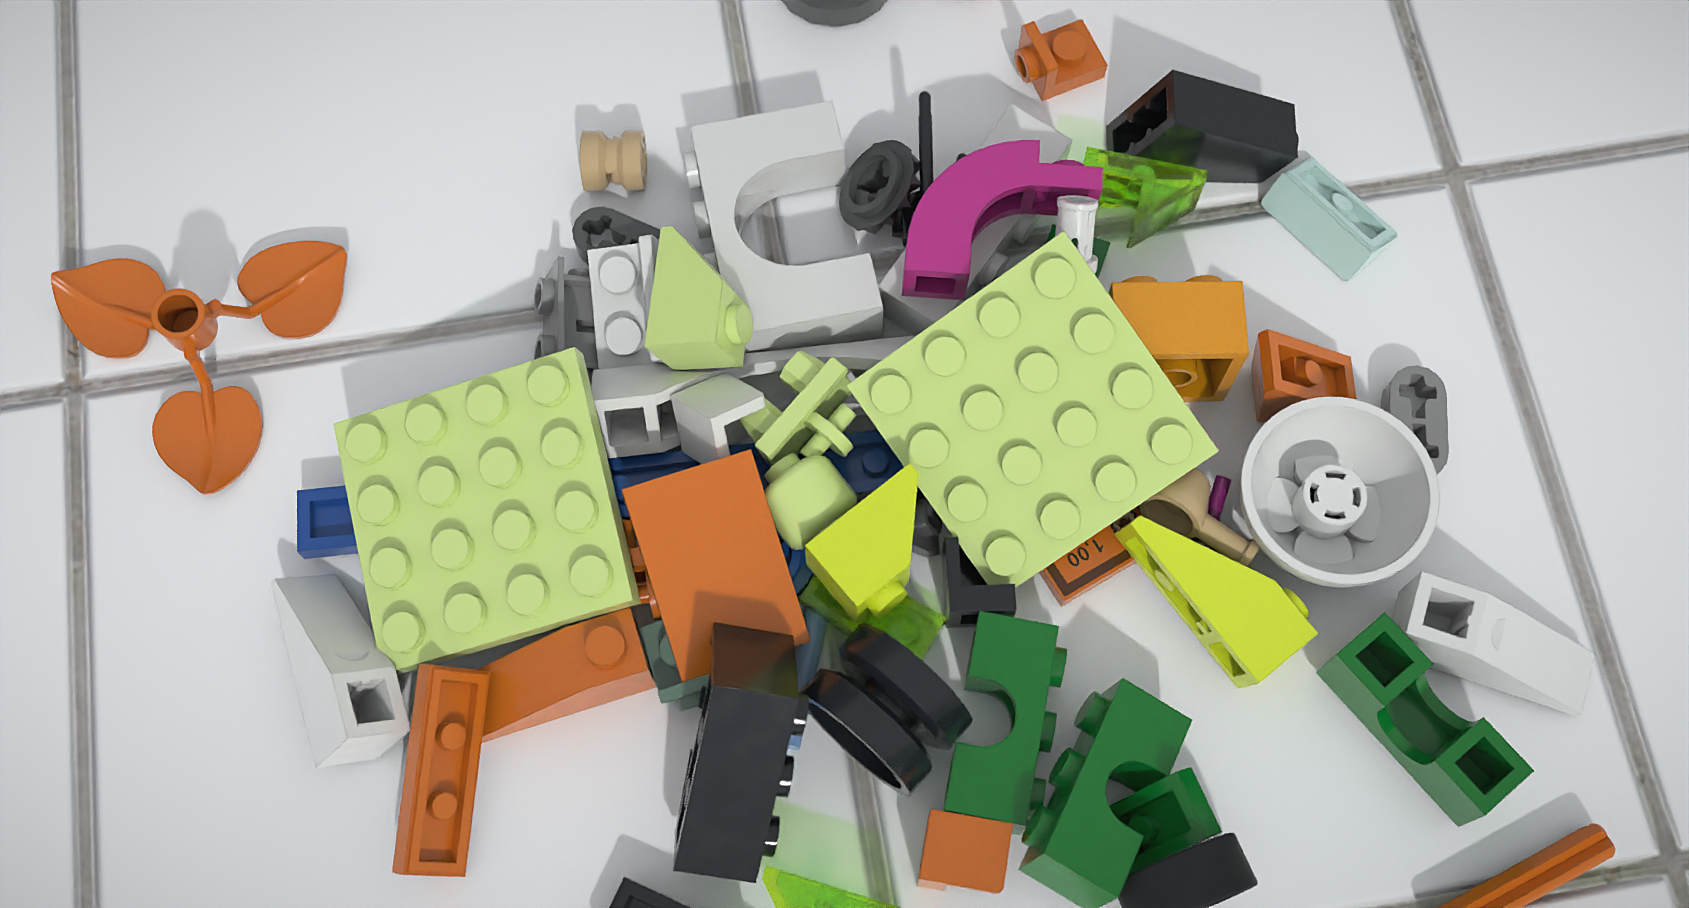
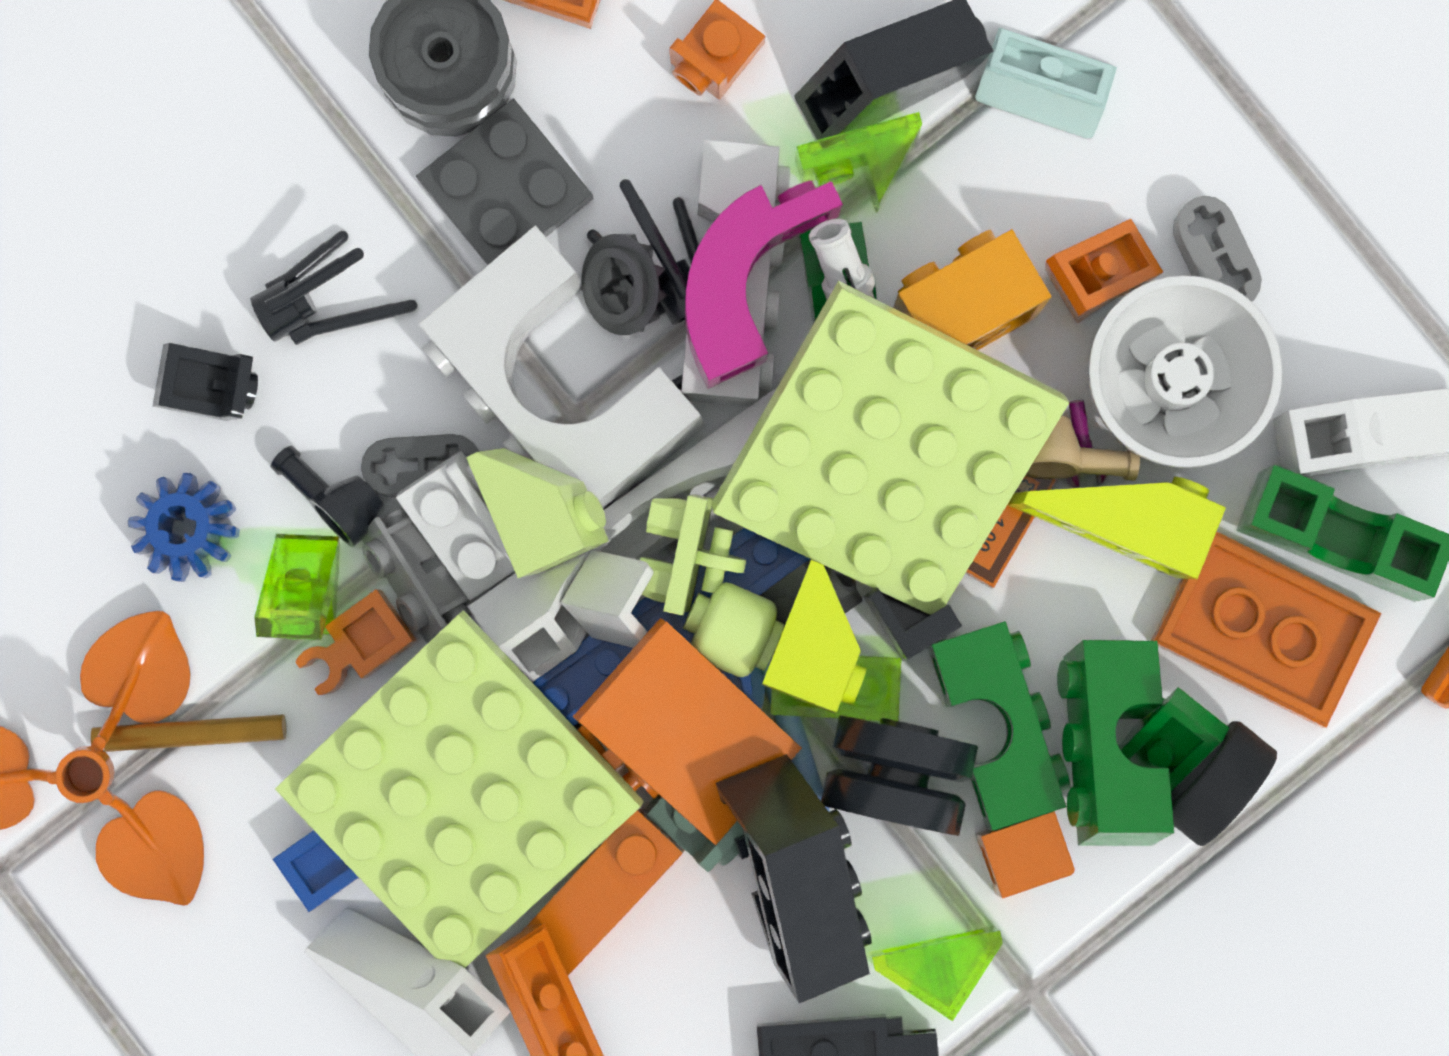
camera: 25 degrees left, 15 degrees up
(303, 359) = (195, 733): none -> pearl gold bar
(403, 192) = (168, 547): none -> blue gear
(463, 289) = (299, 587): none -> clear neon green slope
(486, 351) = (364, 639): none -> orange plate
(491, 93) = (205, 382): none -> black bracket
(538, 239) = (344, 506): none -> black bar
(597, 71) = (287, 304): none -> black plant
(613, 160) = (363, 386): tan wheel -> none
(829, 62) = (504, 183): none -> dark grey plate
(1302, 777) = (1268, 630): none -> orange tile

